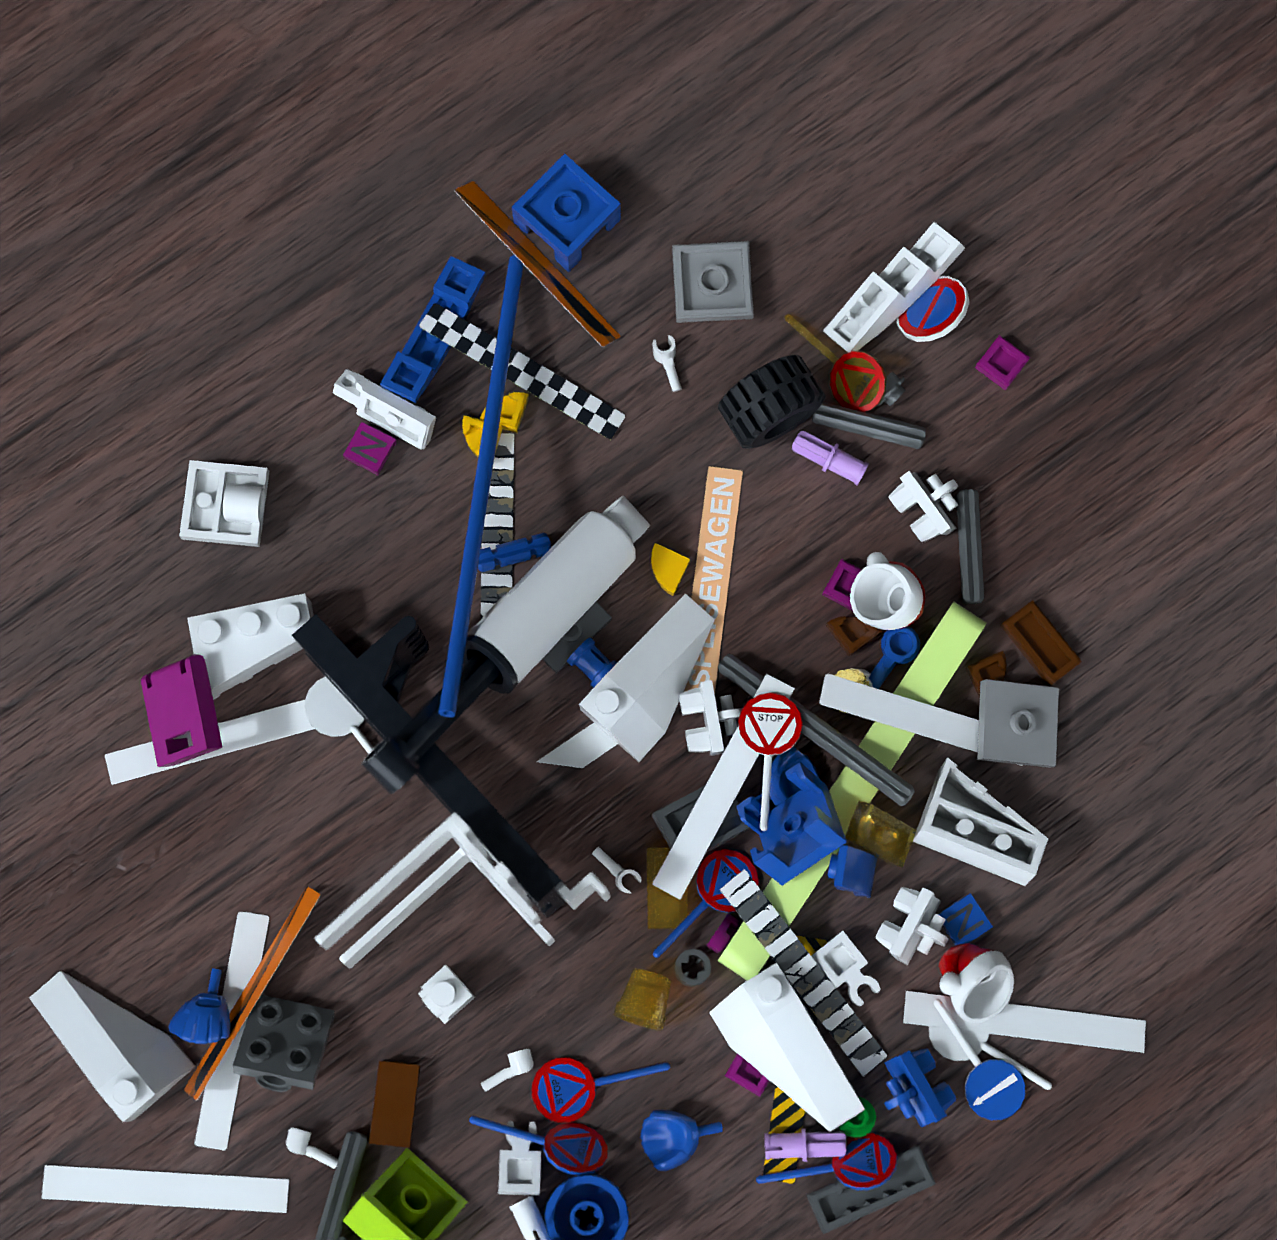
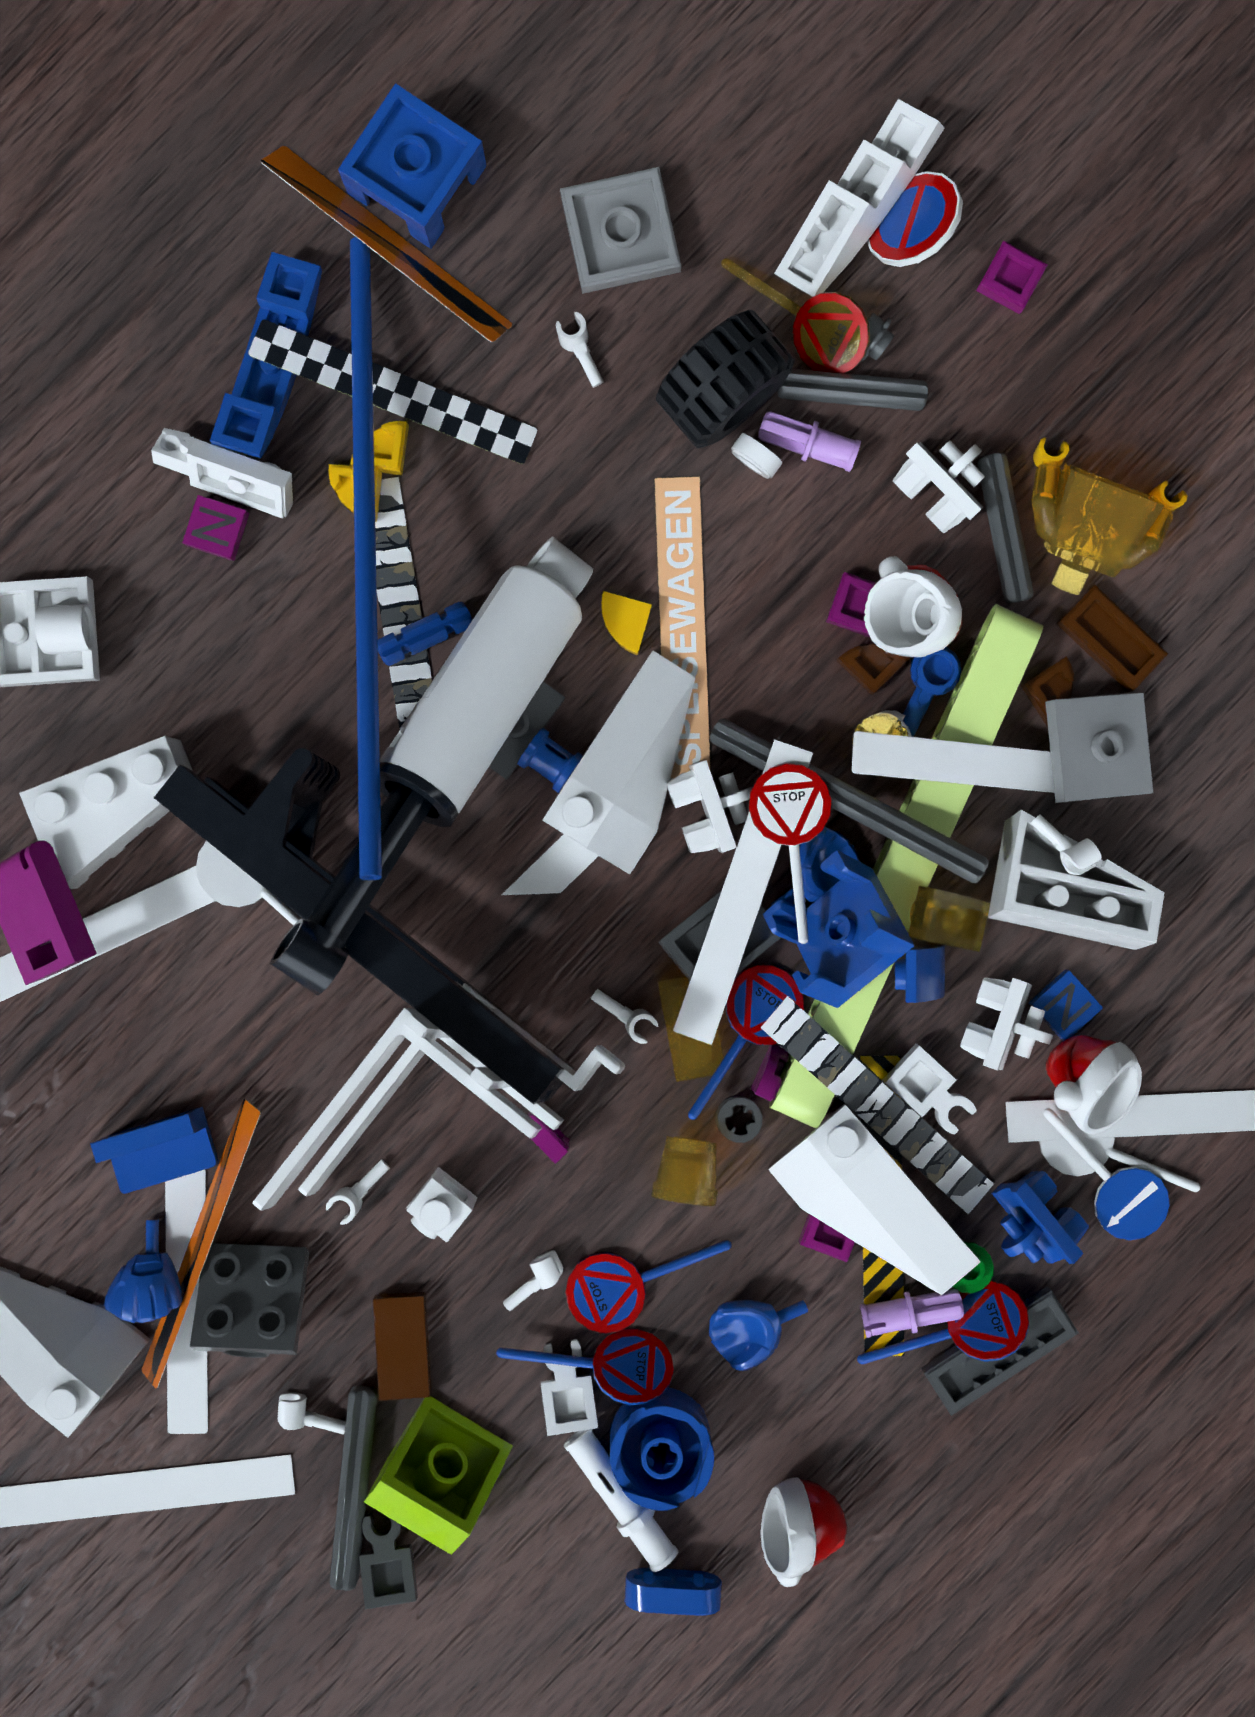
camera: 10 degrees left, 10 degrees up
(233, 914) = (158, 1150): none -> blue panel
(383, 973) = (354, 1195): none -> white hand
(538, 951) = (550, 1141): none -> magenta tile
(787, 462) = (756, 456): none -> white tile
(982, 799) = (1075, 858): none -> white hand
(1038, 551) = (1095, 519): none -> clear yellow torso

